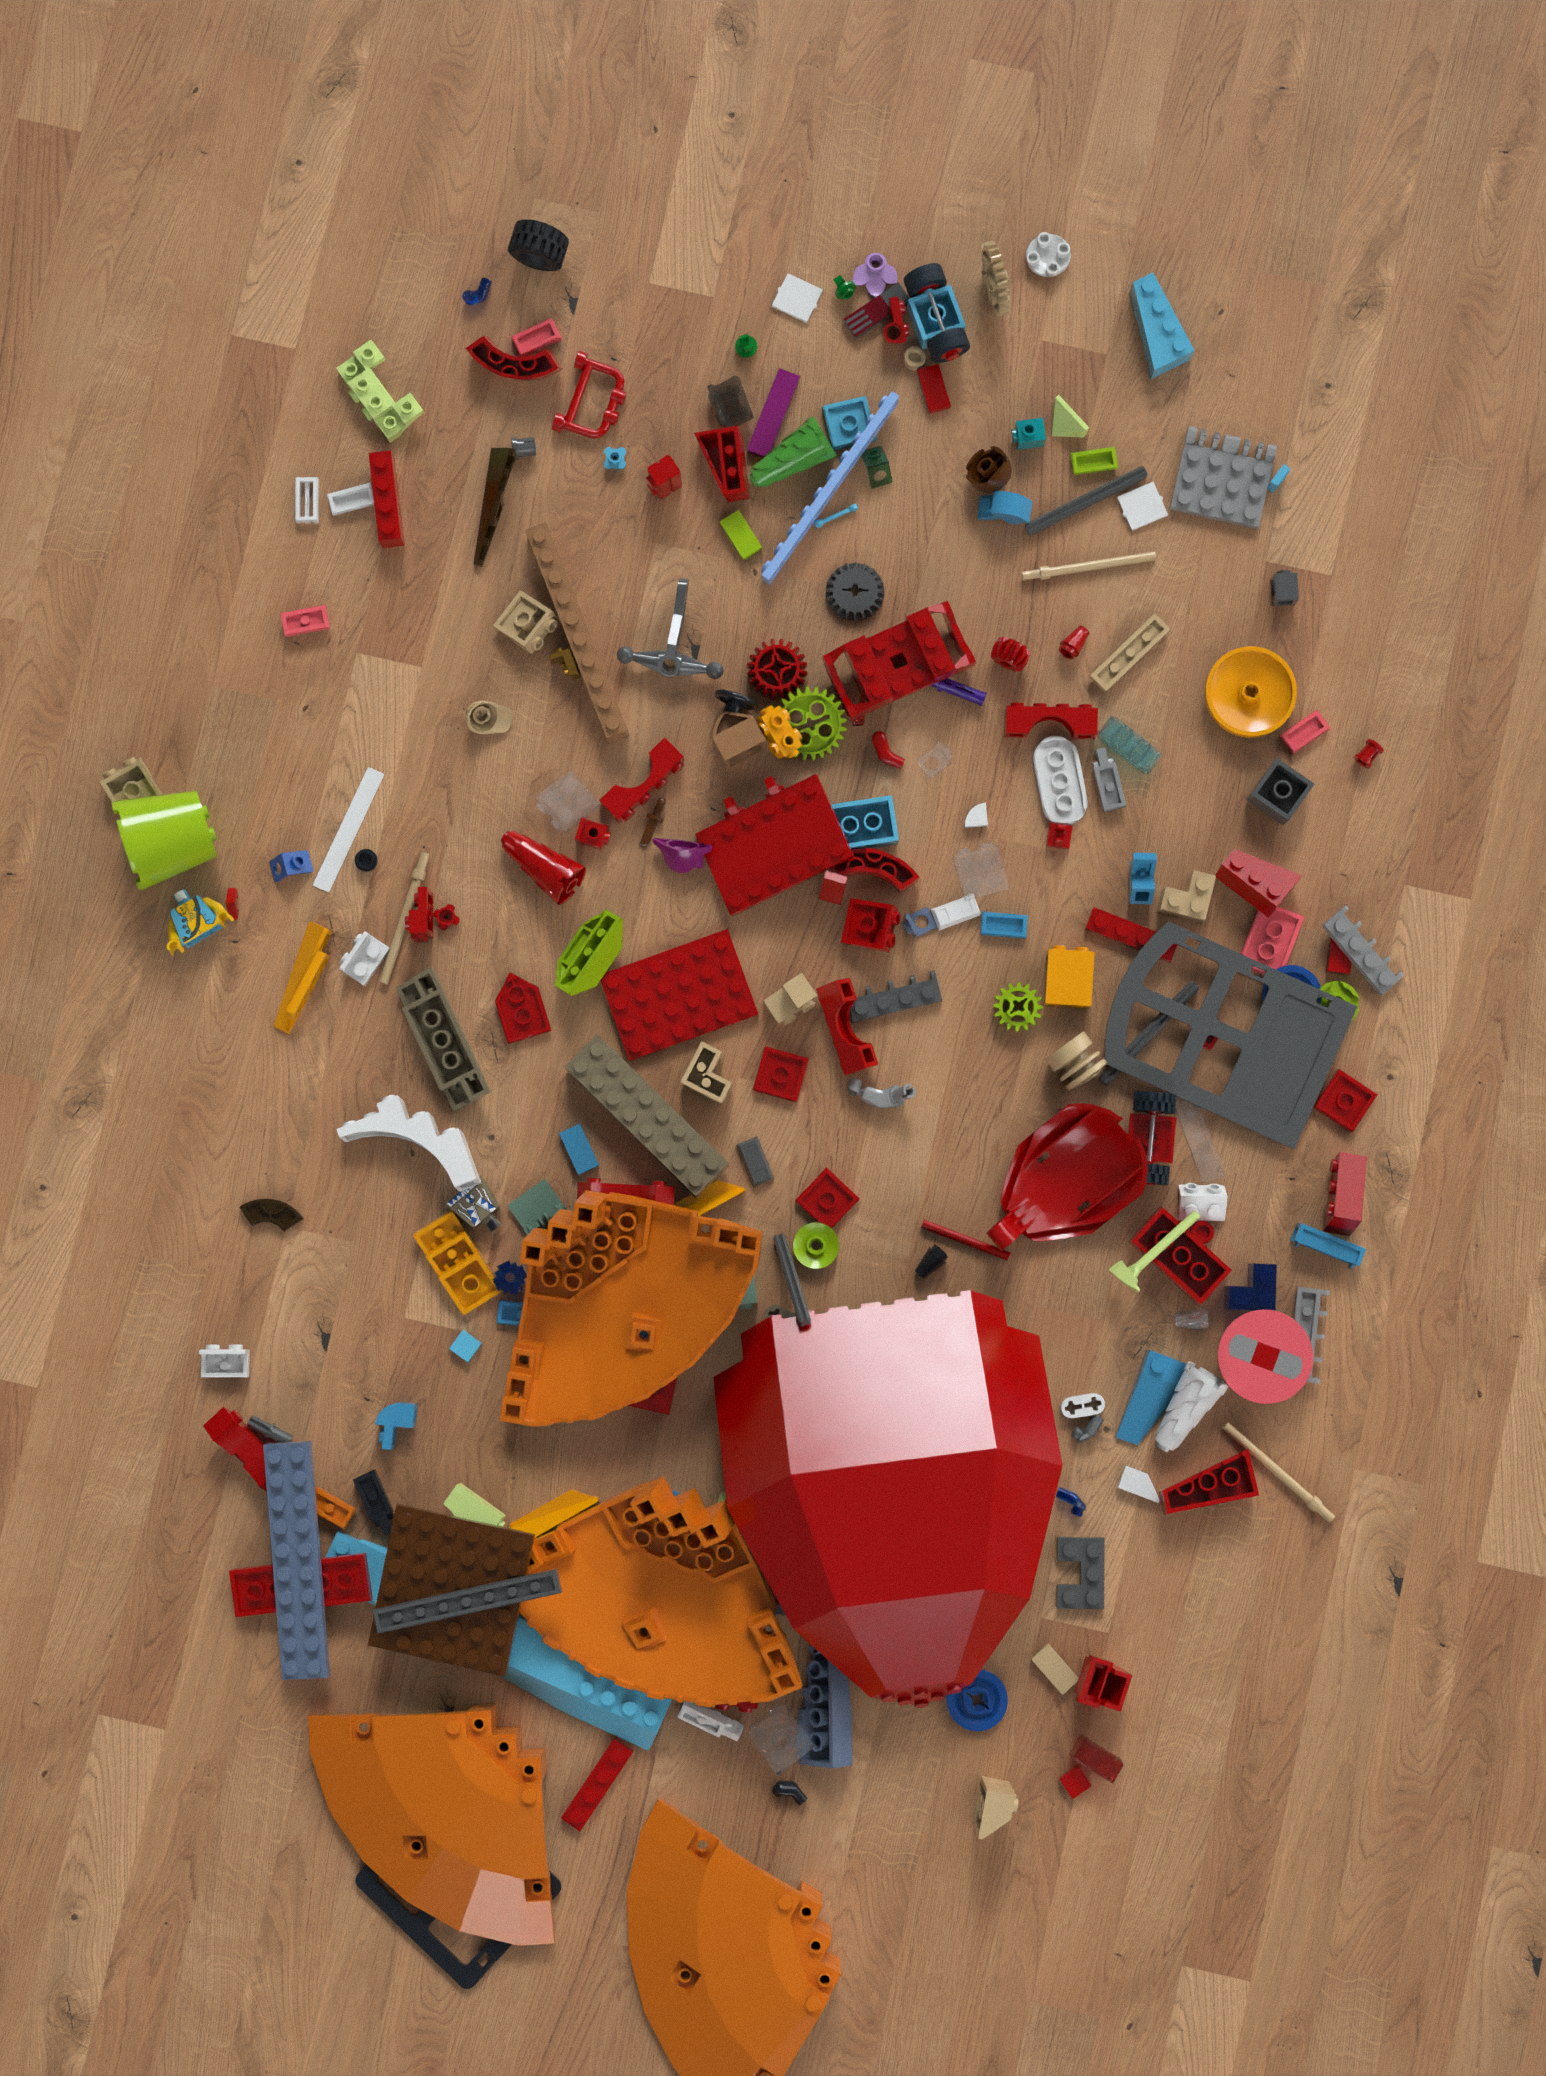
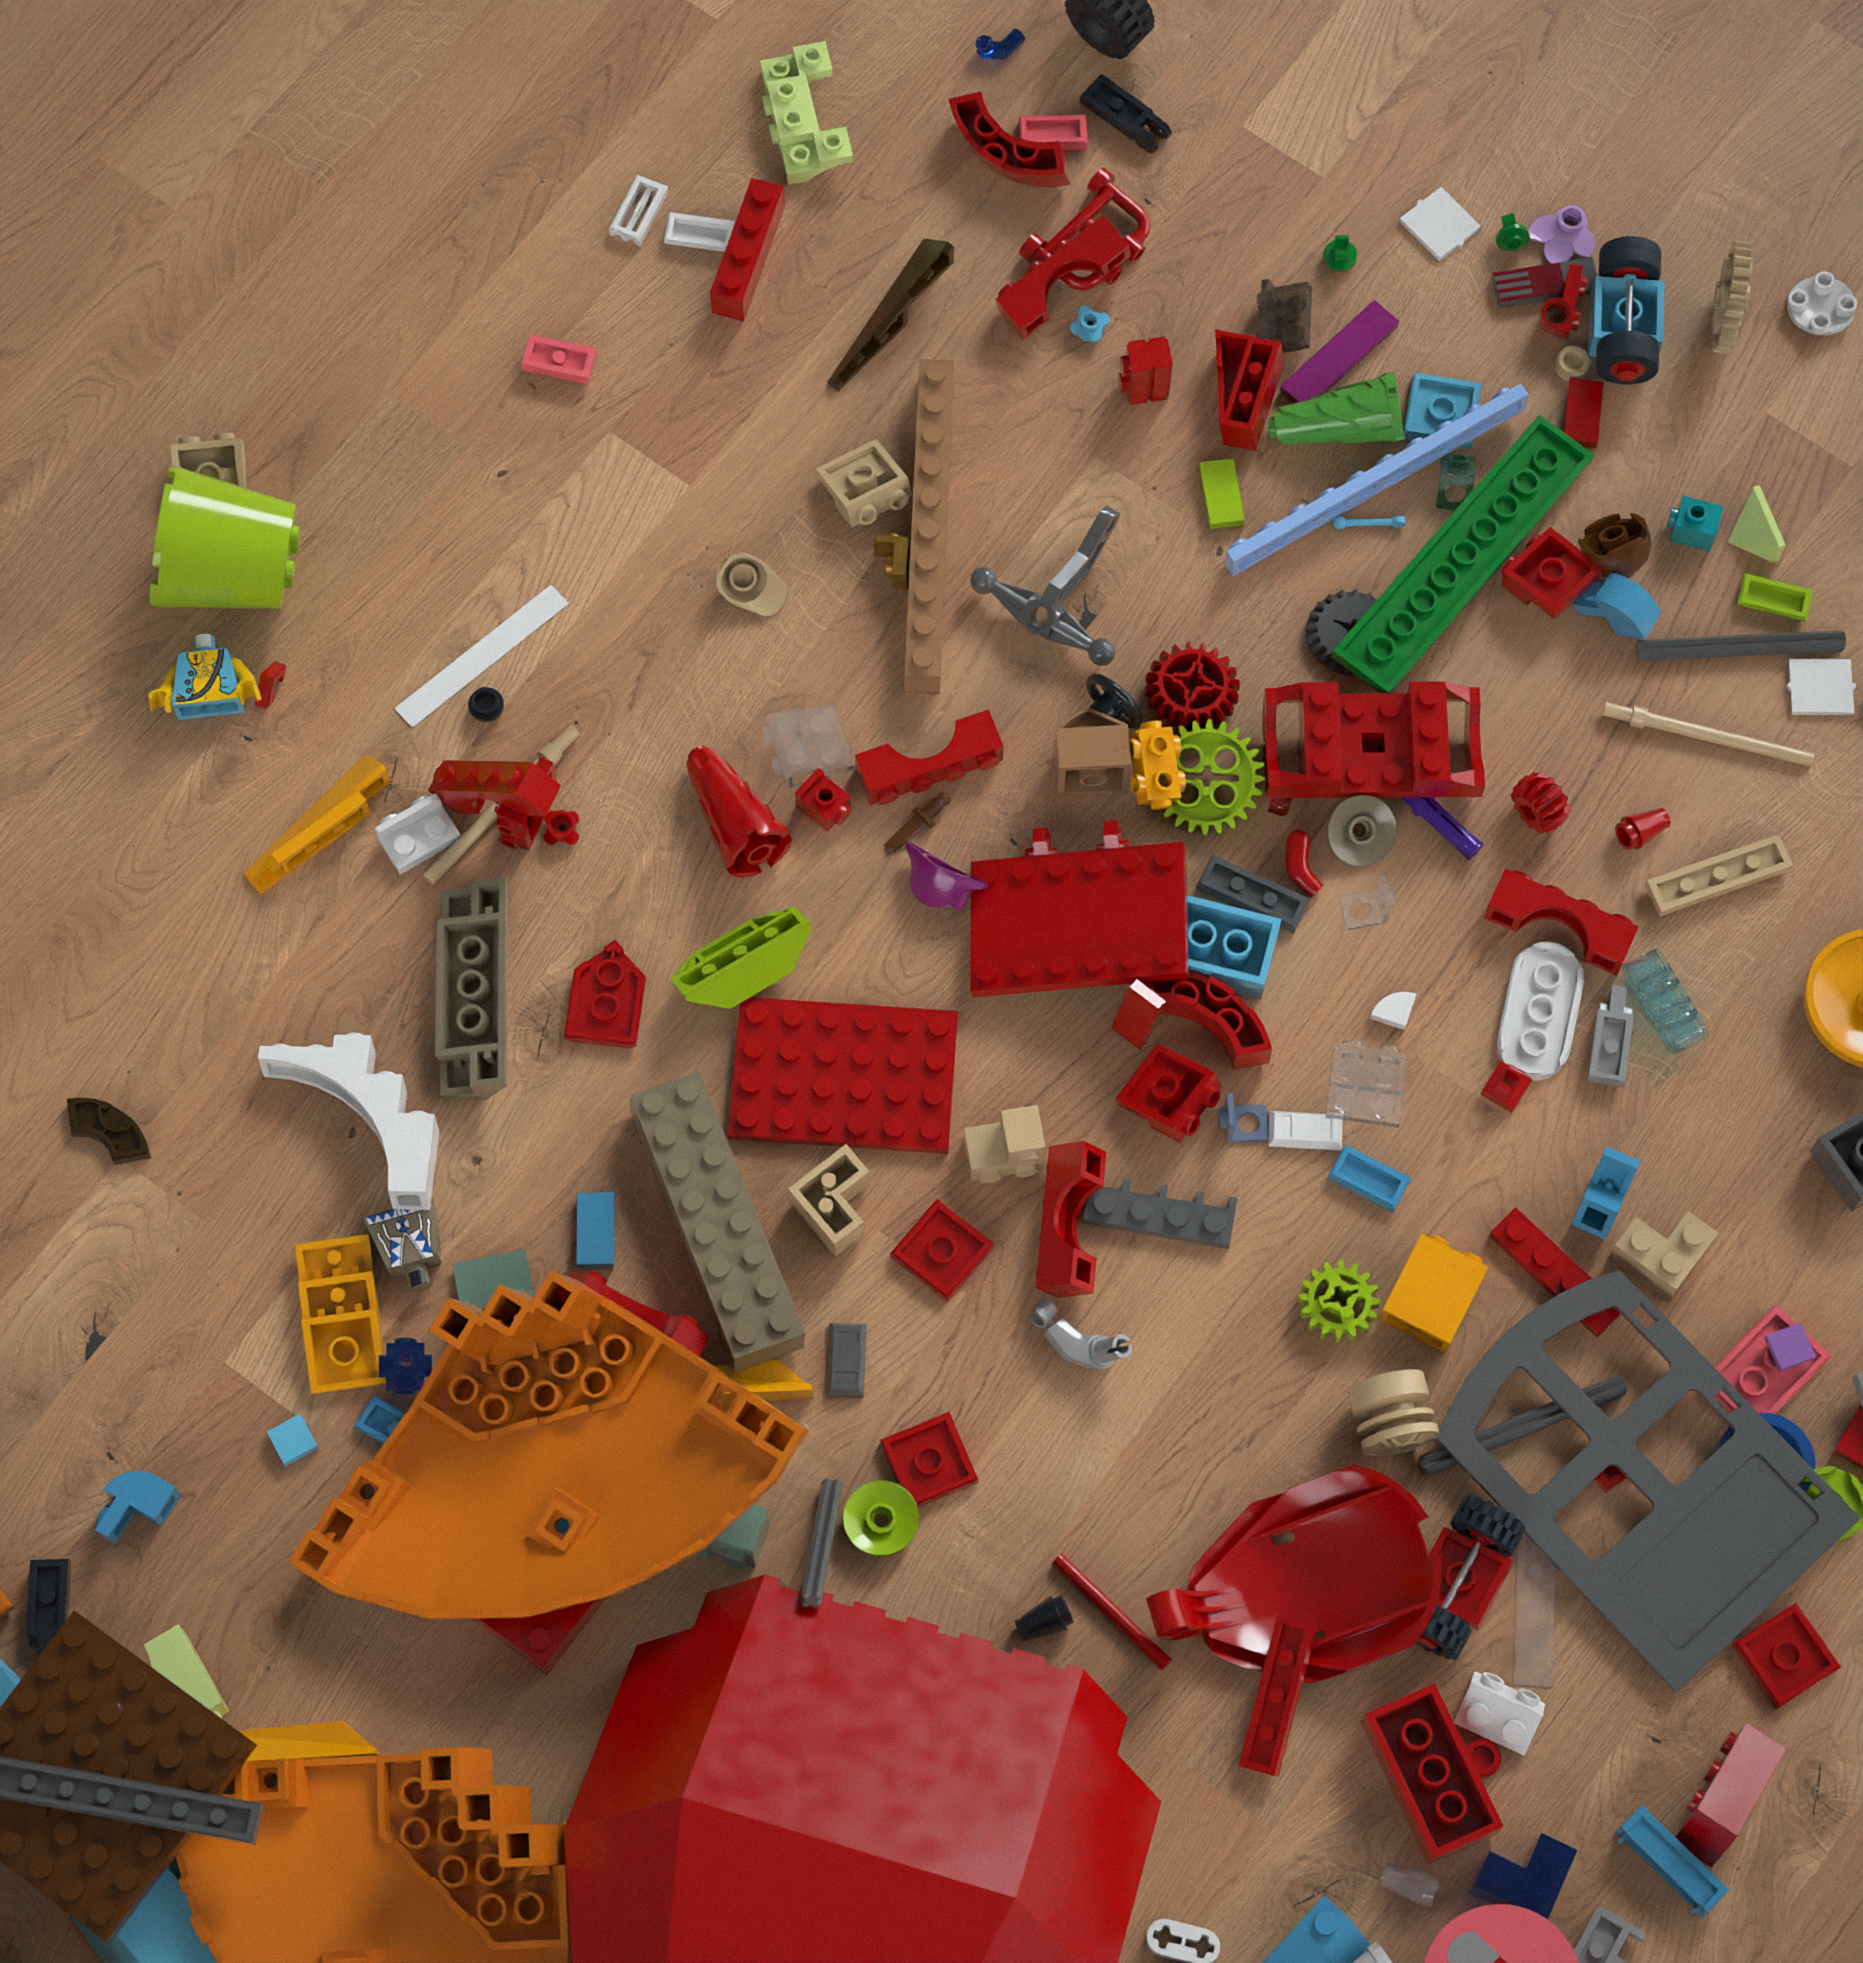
camera: 20 degrees right, 15 degrees down
(291, 864) = (379, 664): blue bracket -> none
(403, 914) = (514, 784): none -> red arch
(523, 447) = (969, 259): dark grey bush -> none
(574, 306) = (1124, 112): none -> black hinge
(599, 410) = (1094, 249): none -> red arch
(866, 781) = (1252, 892): none -> dark grey tile
(901, 515) = (1462, 556): none -> green plate
(921, 719) = (1377, 830): none -> dark tan dish
(957, 505) = (1549, 573): none -> red plate
(1078, 1249) = (1277, 1695): none -> red plate
(1129, 1275) = (1339, 1762): yellowish green piece -> none
(1257, 880) = (1780, 1270): wedge -> none
(1280, 923) = (1790, 1347): none -> medium lavender tile

